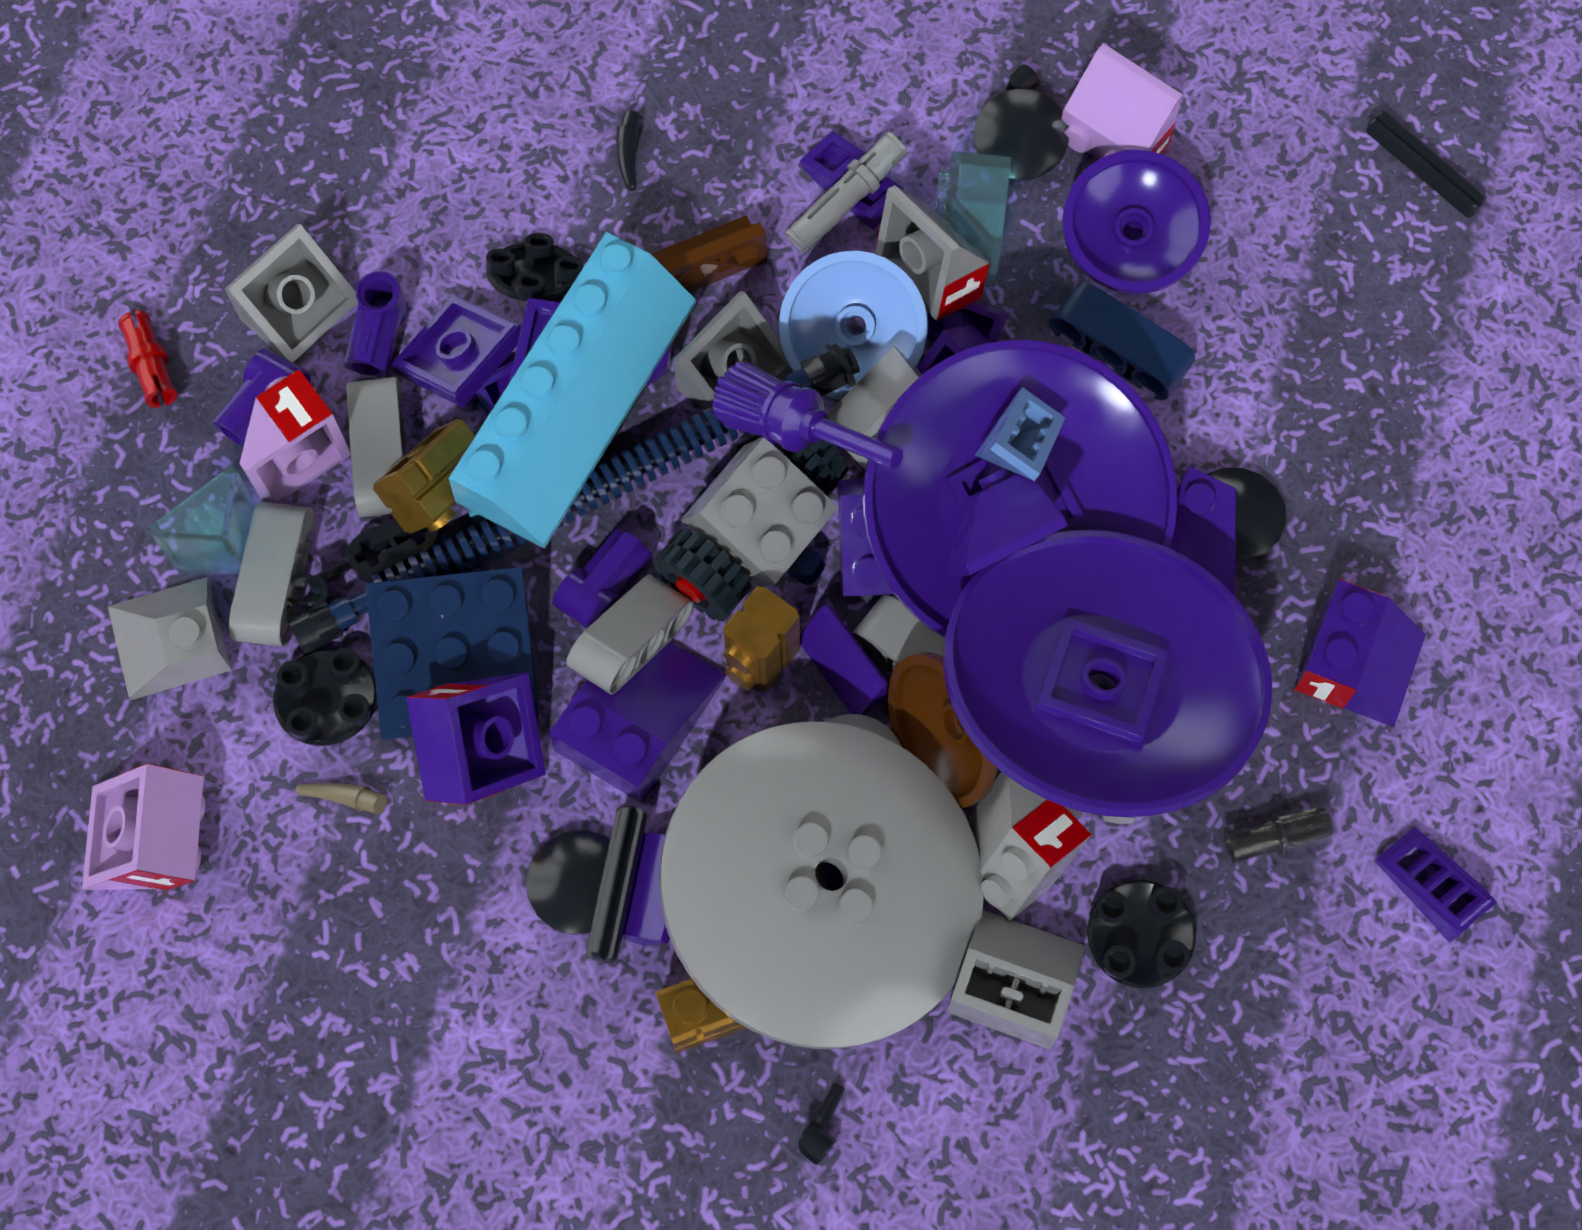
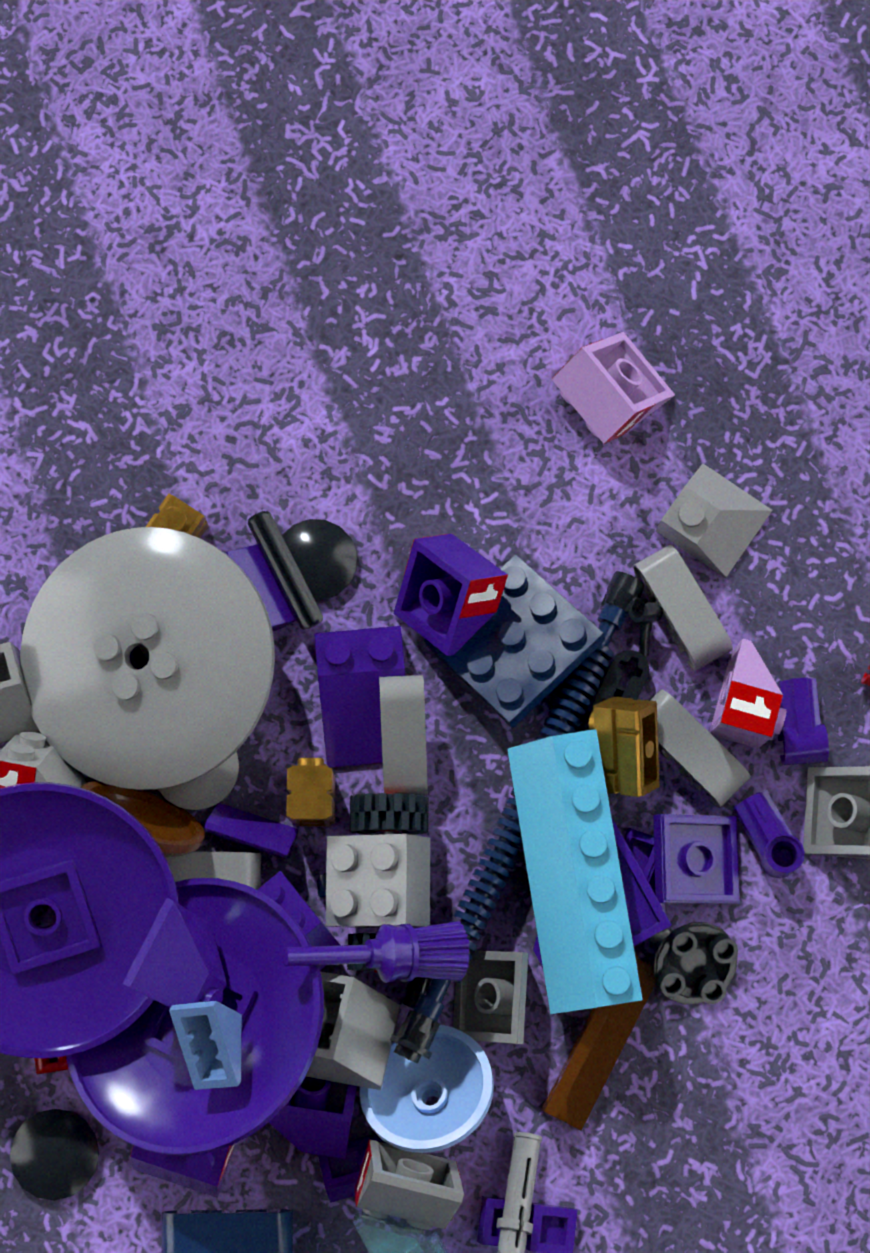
camera: 140 degrees right, 10 degrees up
(208, 527) = (739, 597): clear light blue slope -> none
(325, 696) = (576, 555): black dish -> none
(350, 795) = (506, 508): dark tan helmet -> none
(602, 582) = (458, 759): dark purple piece -> none
(626, 143) = (720, 1127): black helmet -> none
(814, 1140) = (48, 511): black hand -> none
(1207, 525) = (61, 1116): dark purple wing -> none

